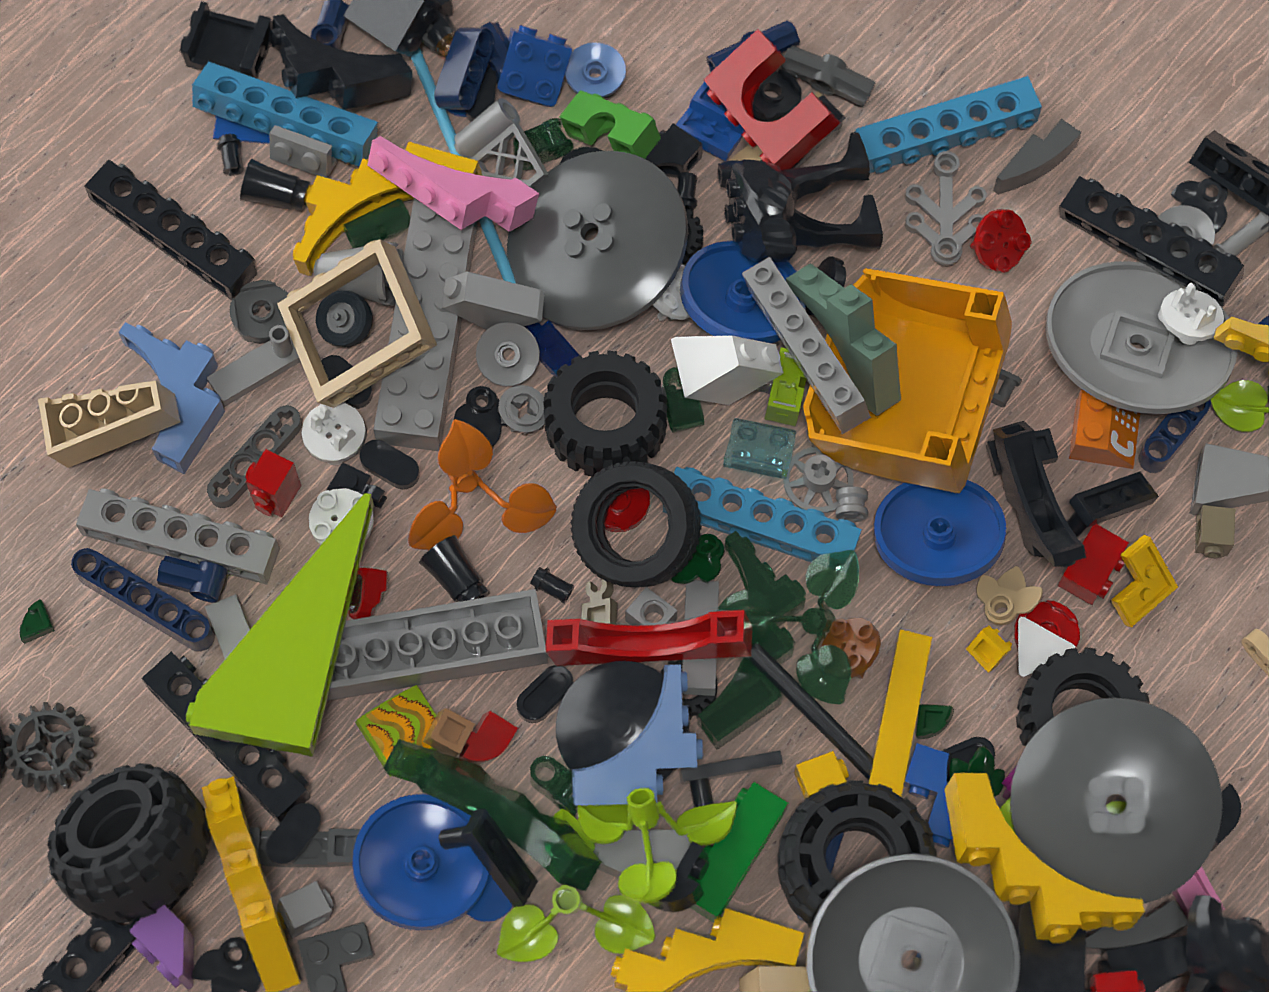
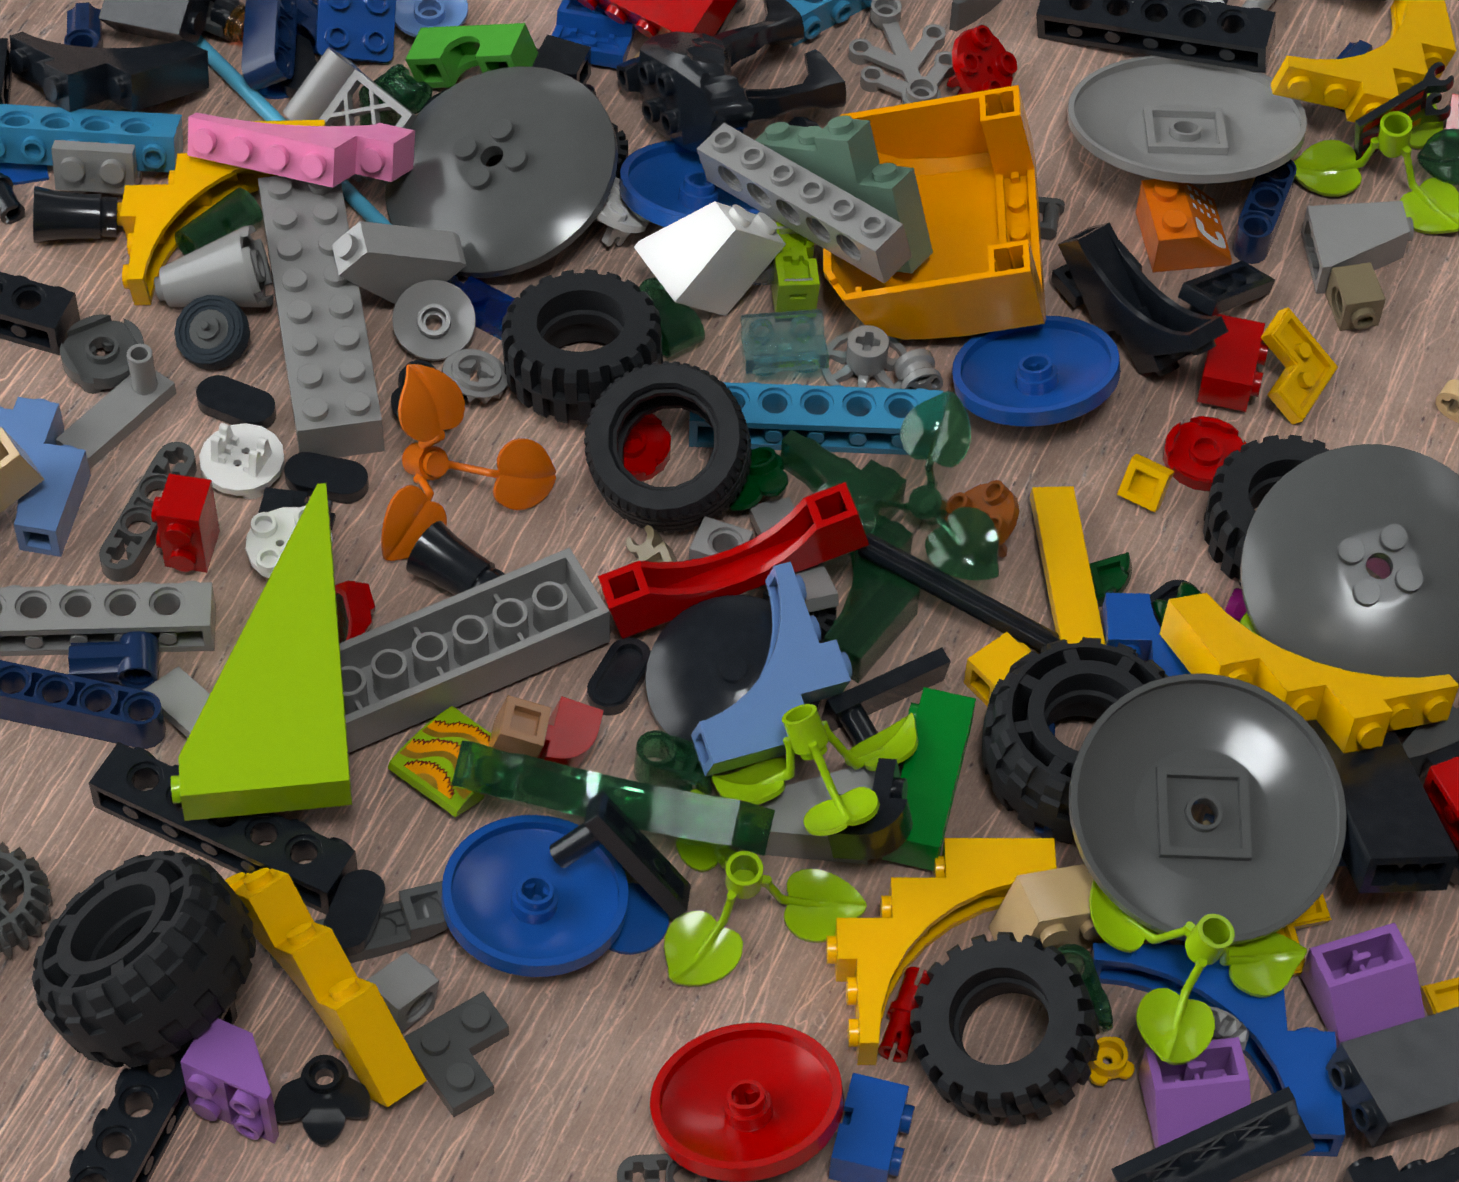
camera: 20 degrees left, 15 degrees down
(382, 362) = (276, 356): tan window -> none
(551, 584) = (587, 553): black pin -> none
(1007, 592) = (1143, 425): tan plate -> none
(1036, 645) = (1196, 466): white sticker -> none
(1202, 312) = (1234, 81): white plate -> none

